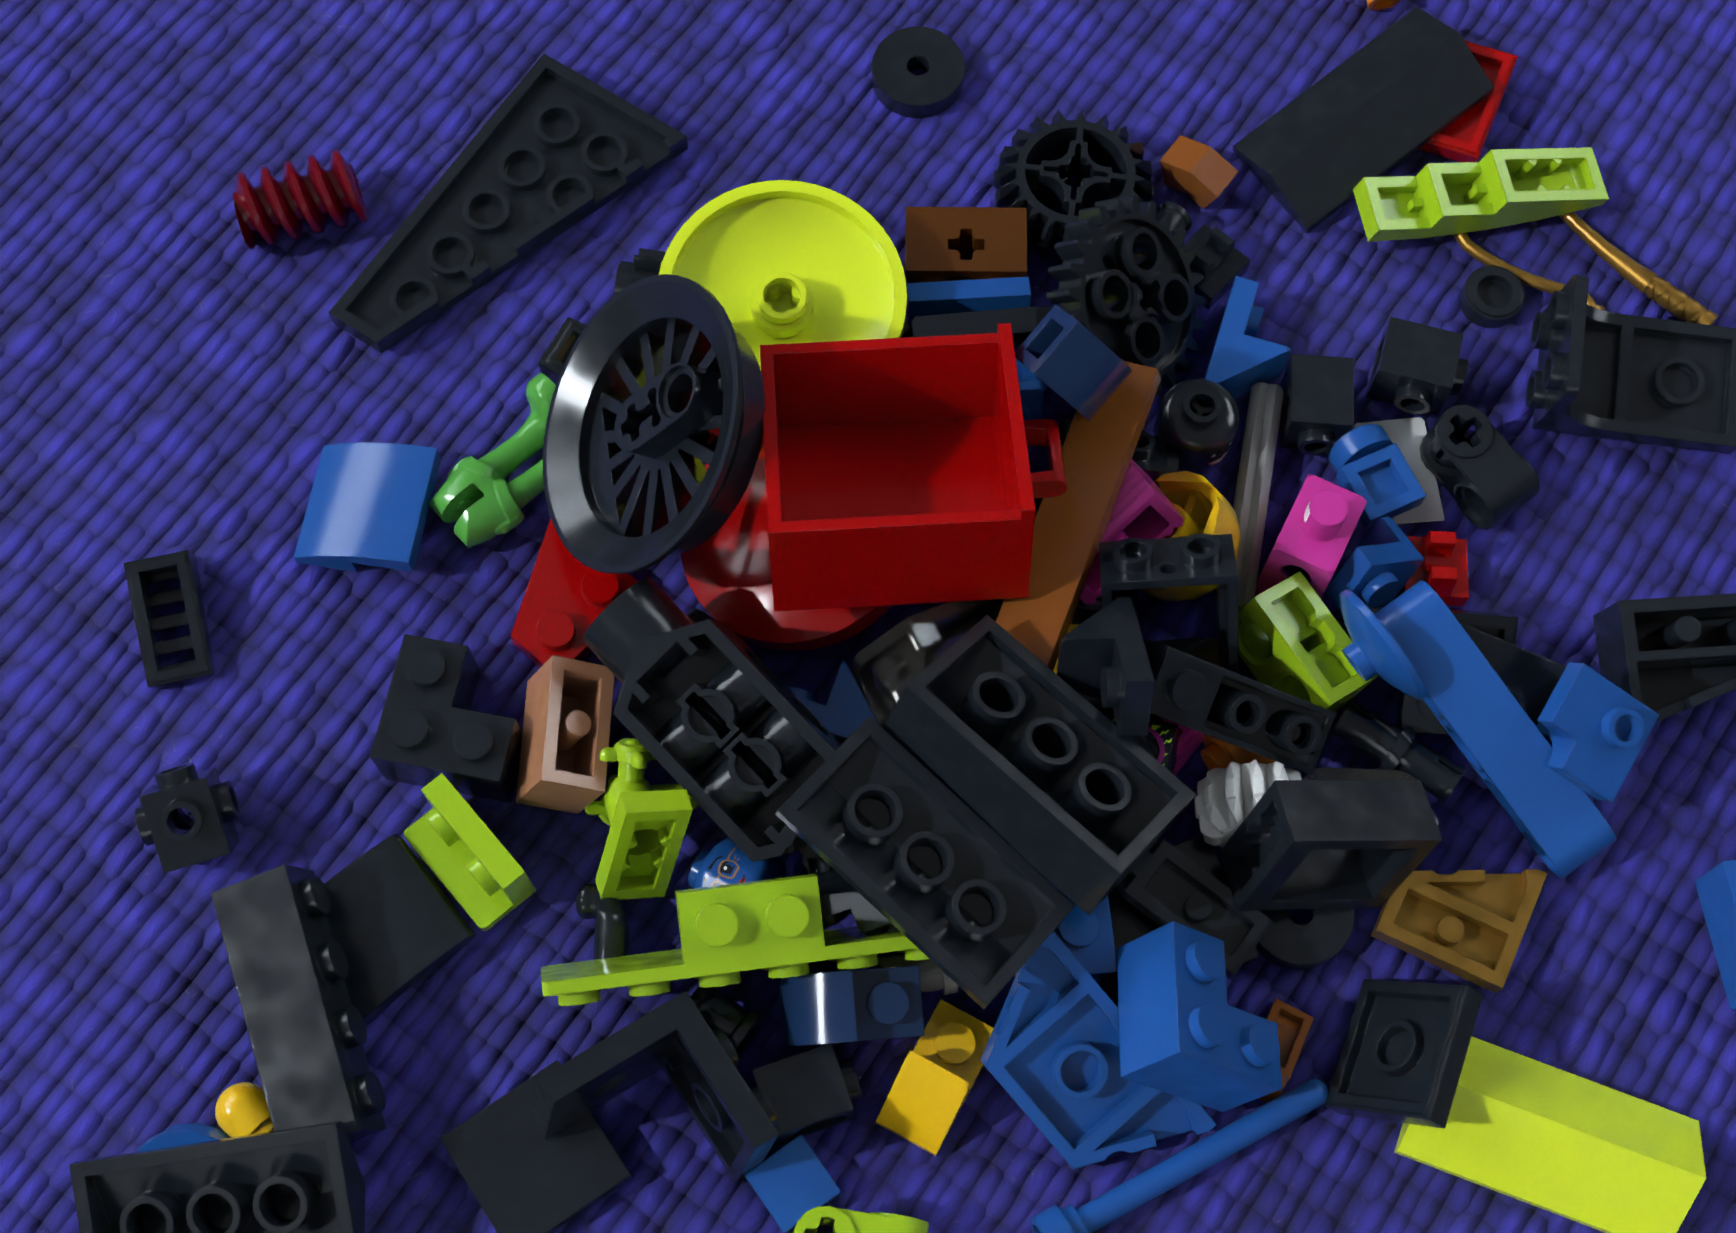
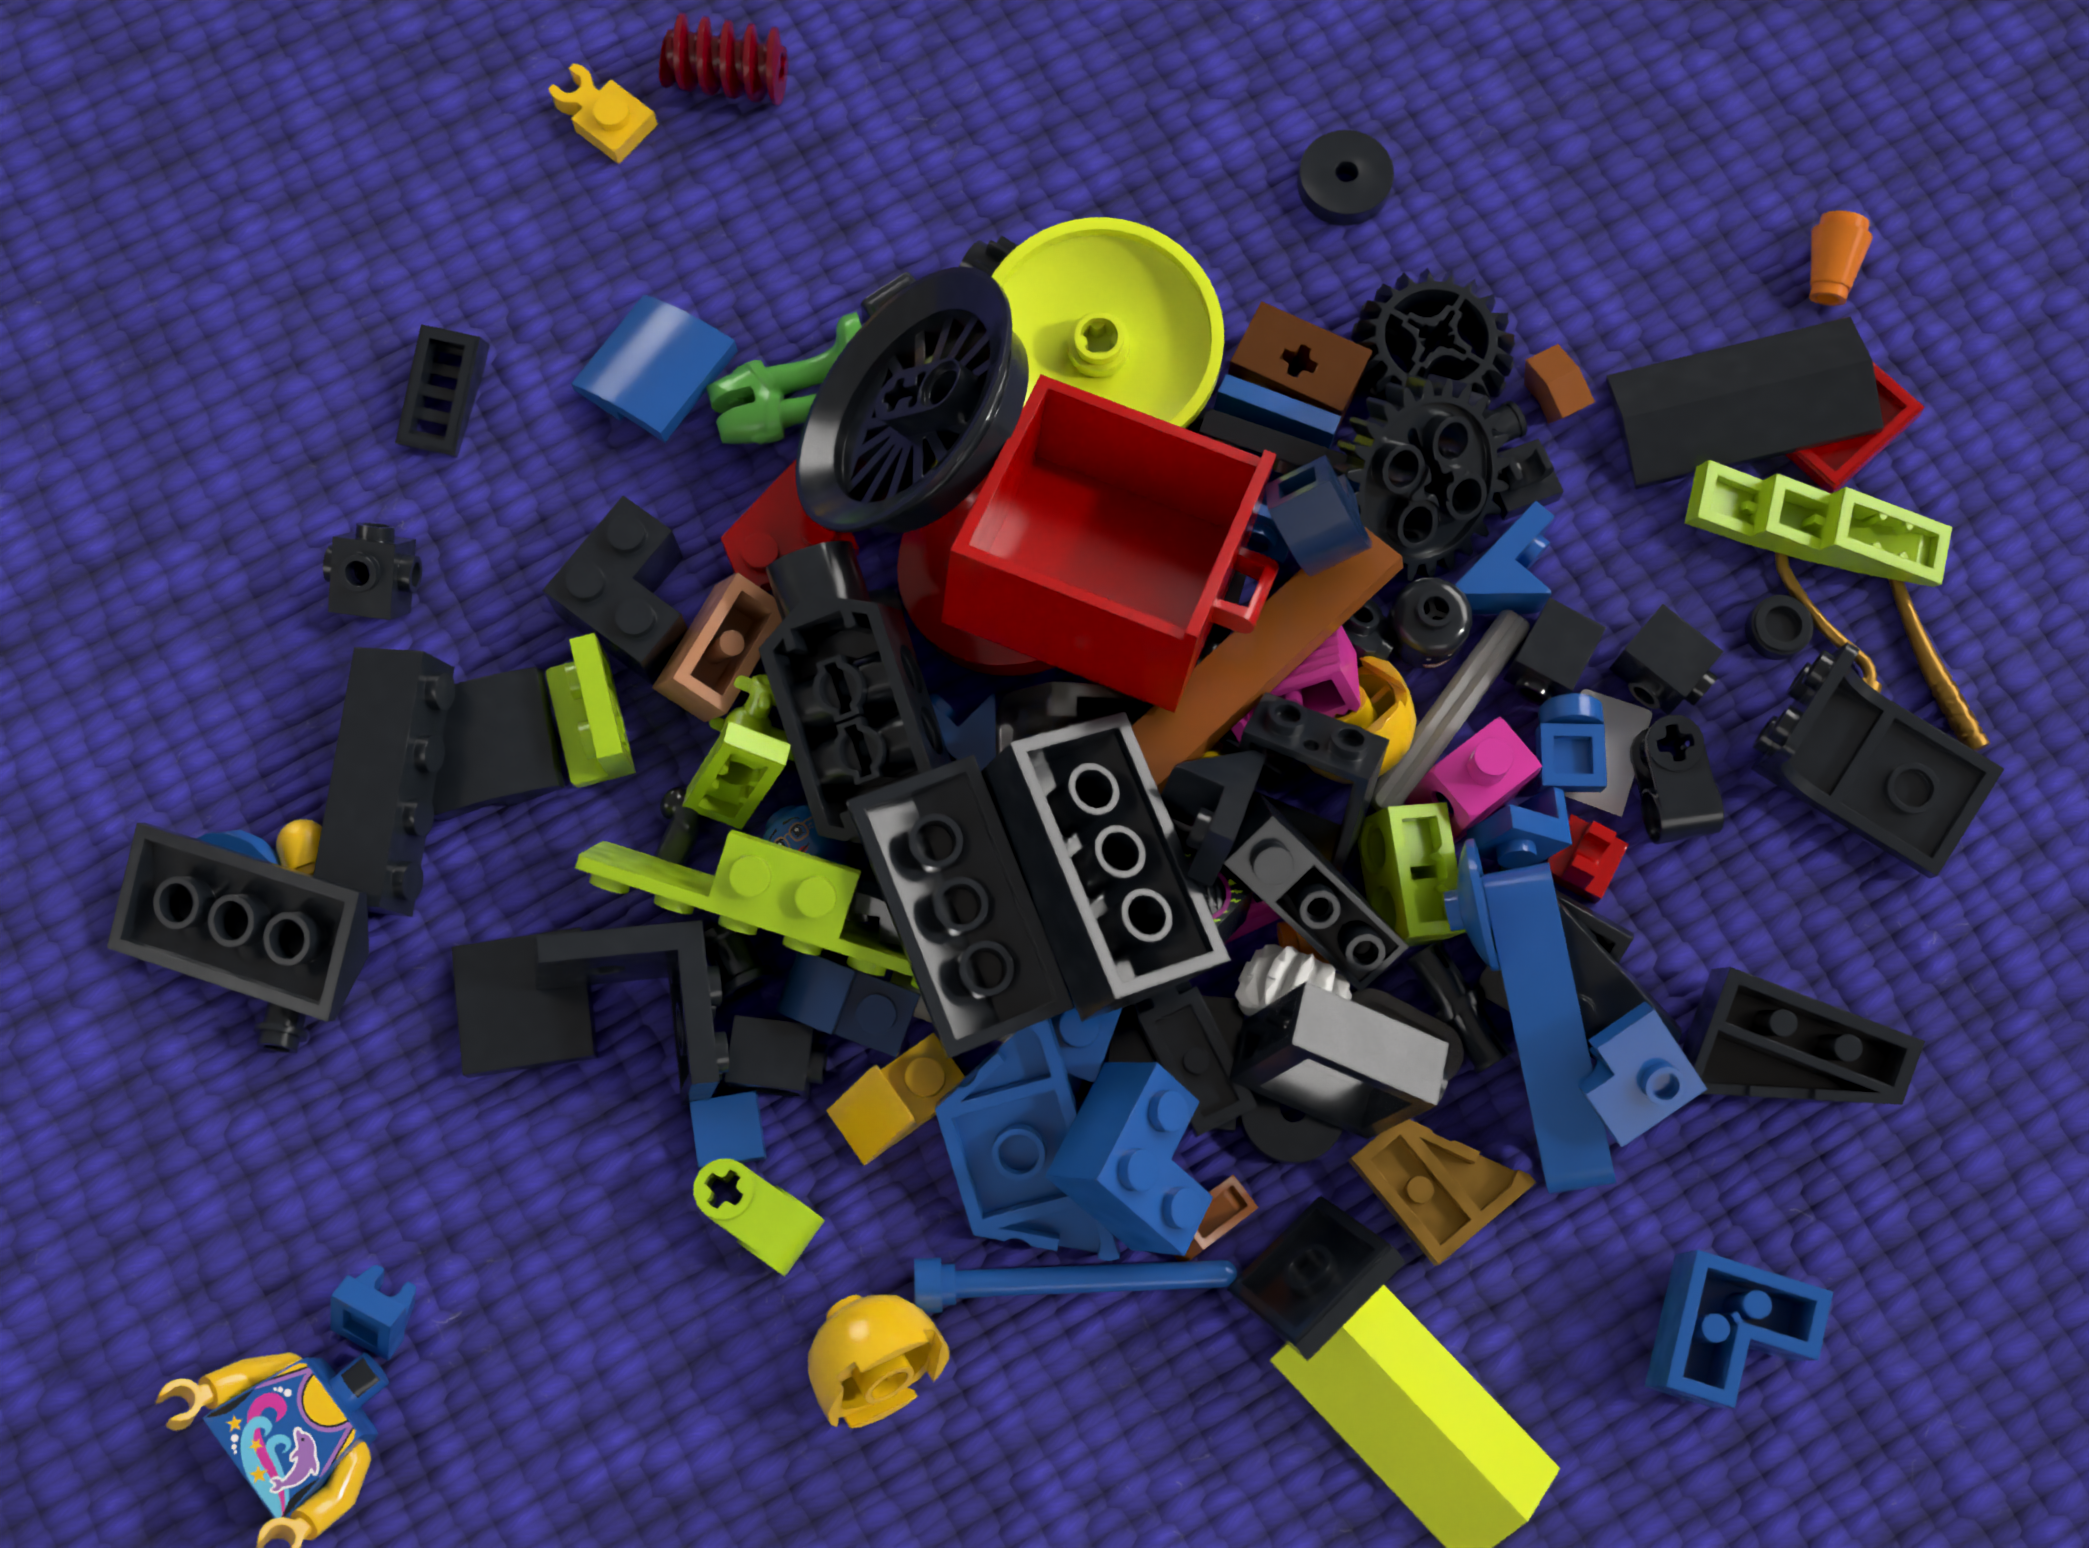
camera: 25 degrees right, 5 degrees up
(207, 301) = (605, 117): none -> yellow plate
(523, 180) = (935, 127): black wing -> none

